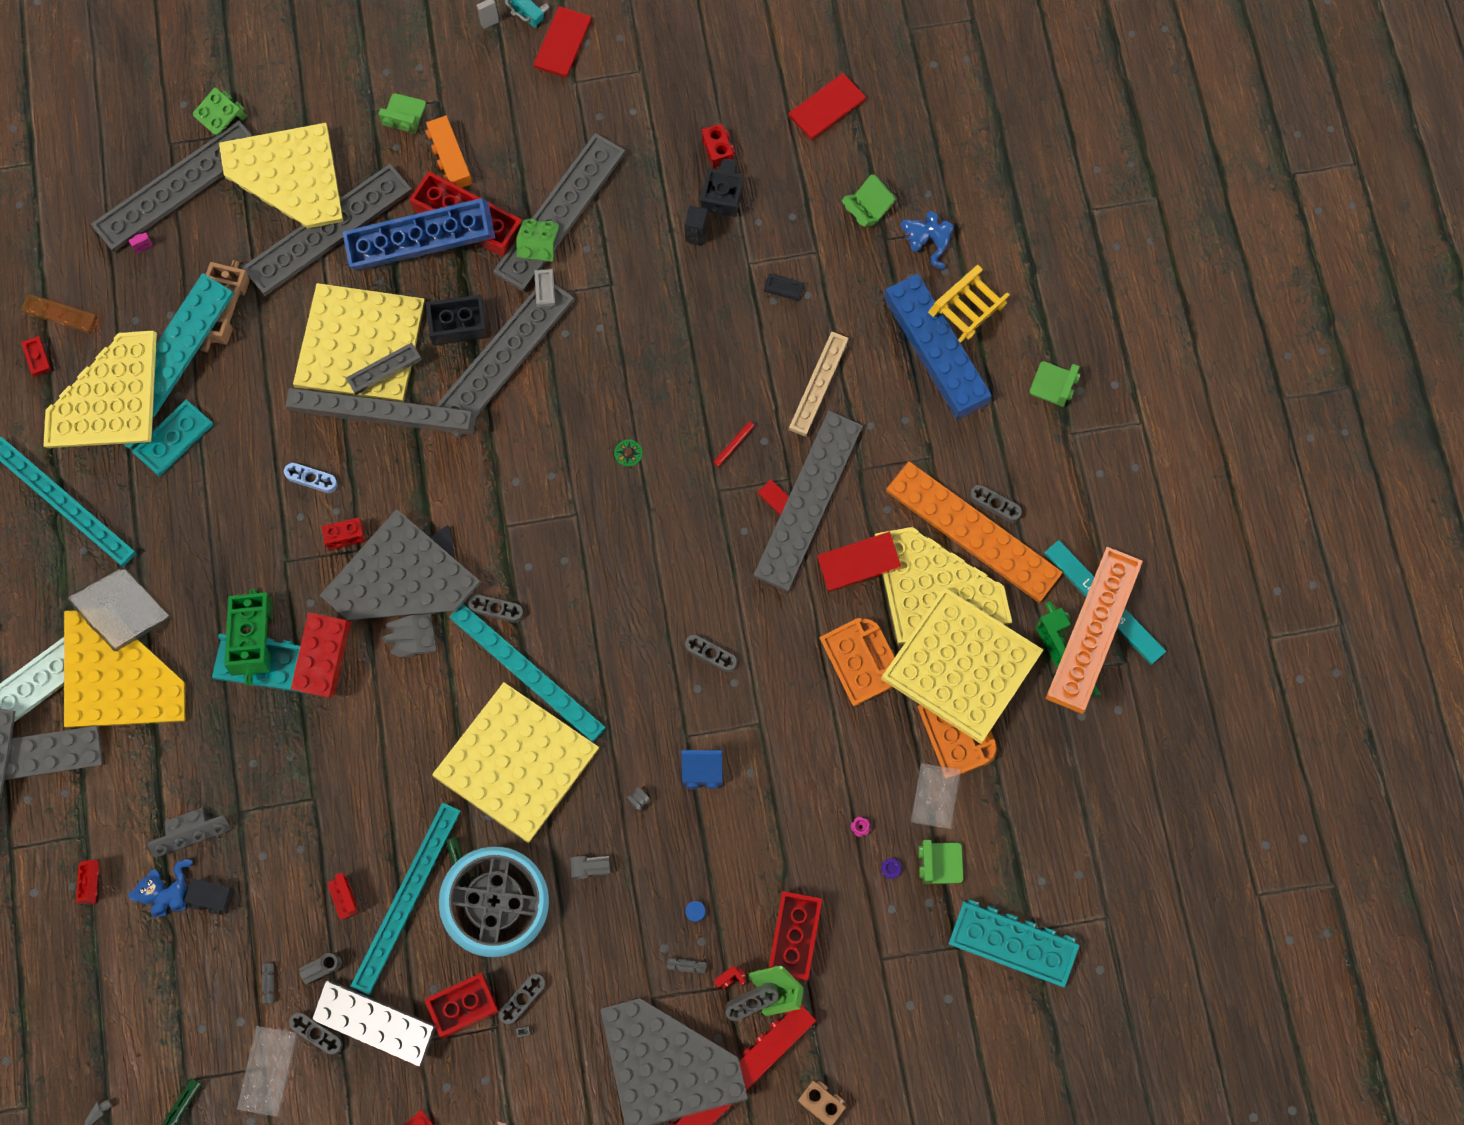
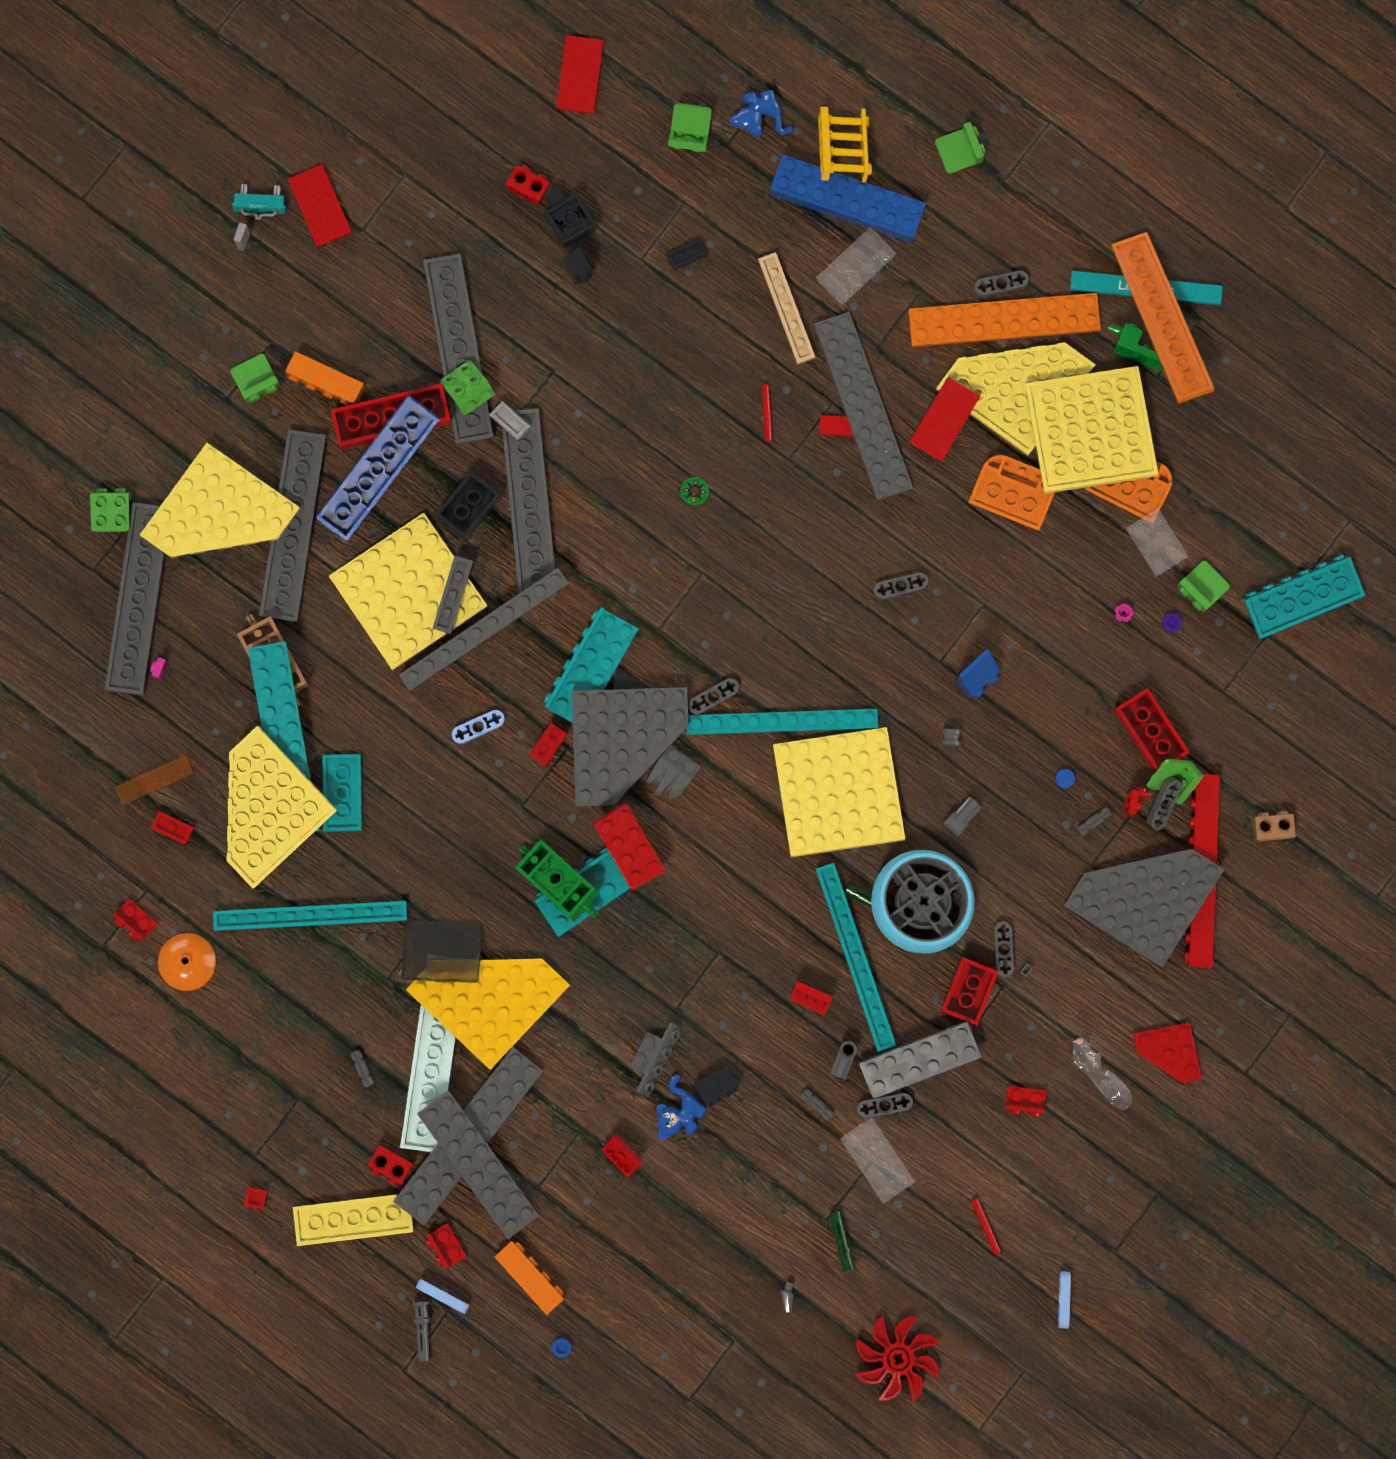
camera: 45 degrees left, 10 degrees up
(437, 503) = (592, 661): none -> teal bracket
(898, 398) = (856, 266): none -> clear plate

